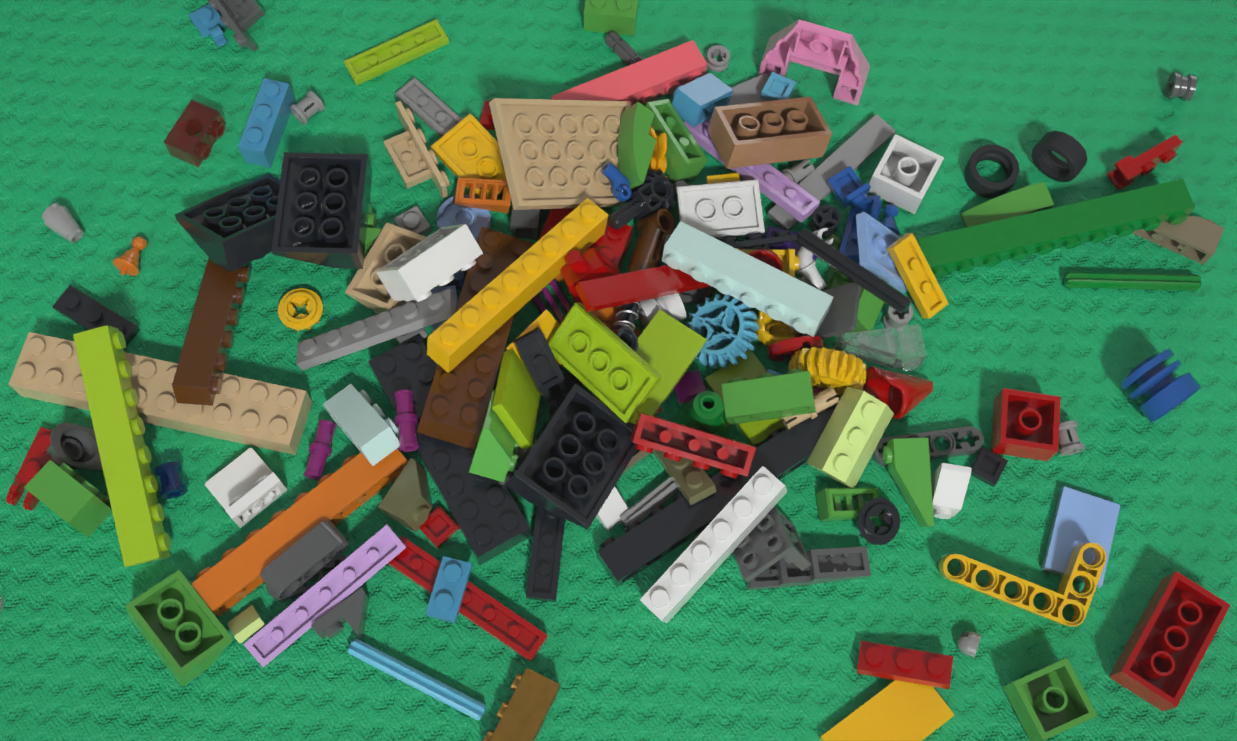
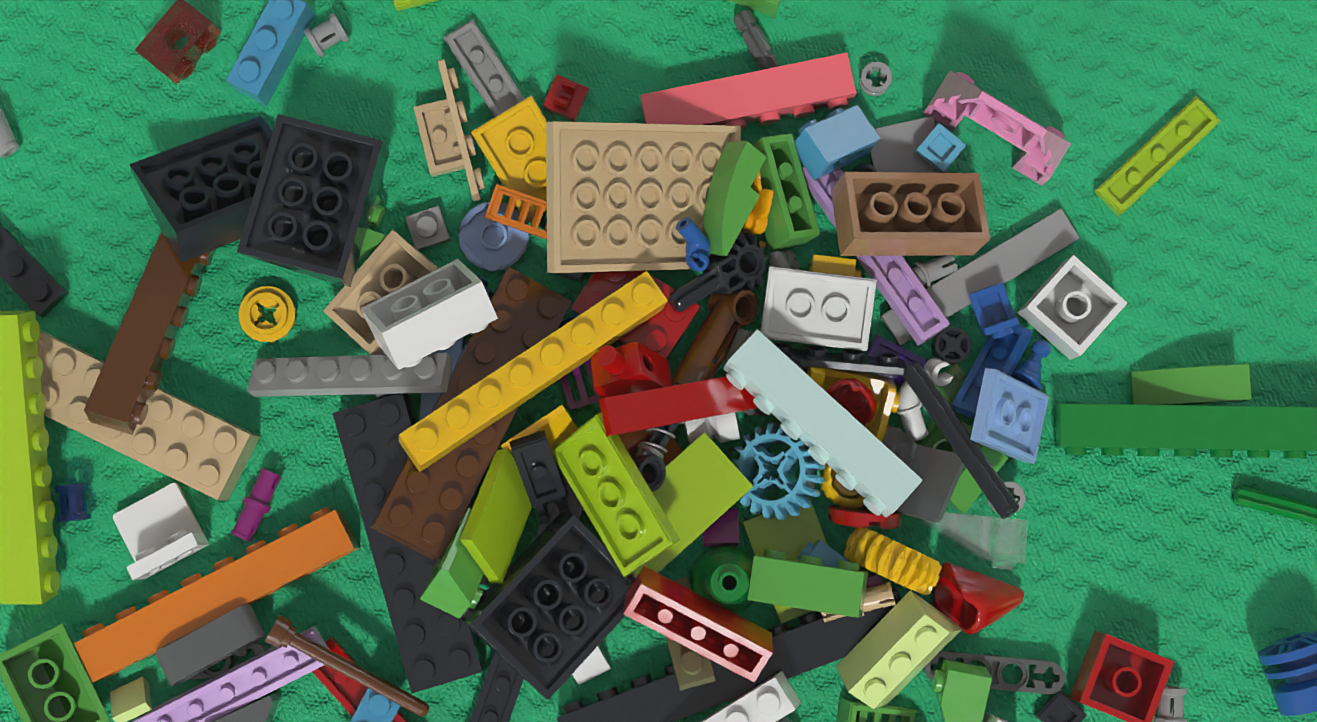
camera: 15 degrees right, 15 degrees up
(129, 261) = (69, 199): orange piece -> none
(363, 423) = (310, 493): light aqua brick -> none
(365, 530) = (285, 634): none -> reddish brown piece
(406, 420) = (360, 508): magenta pin -> none
(409, 497) = (349, 594): olive slope -> none
(438, 527) = (376, 633): red tile -> none
(649, 502) = (634, 664): light grey axle -> none
(917, 275) = (1045, 454): yellow plate -> none
(932, 69) = (1157, 156): none -> lime tile
(999, 155) = (1212, 312): black tyre -> none
(1065, 146) = (1281, 329): black tyre -> none

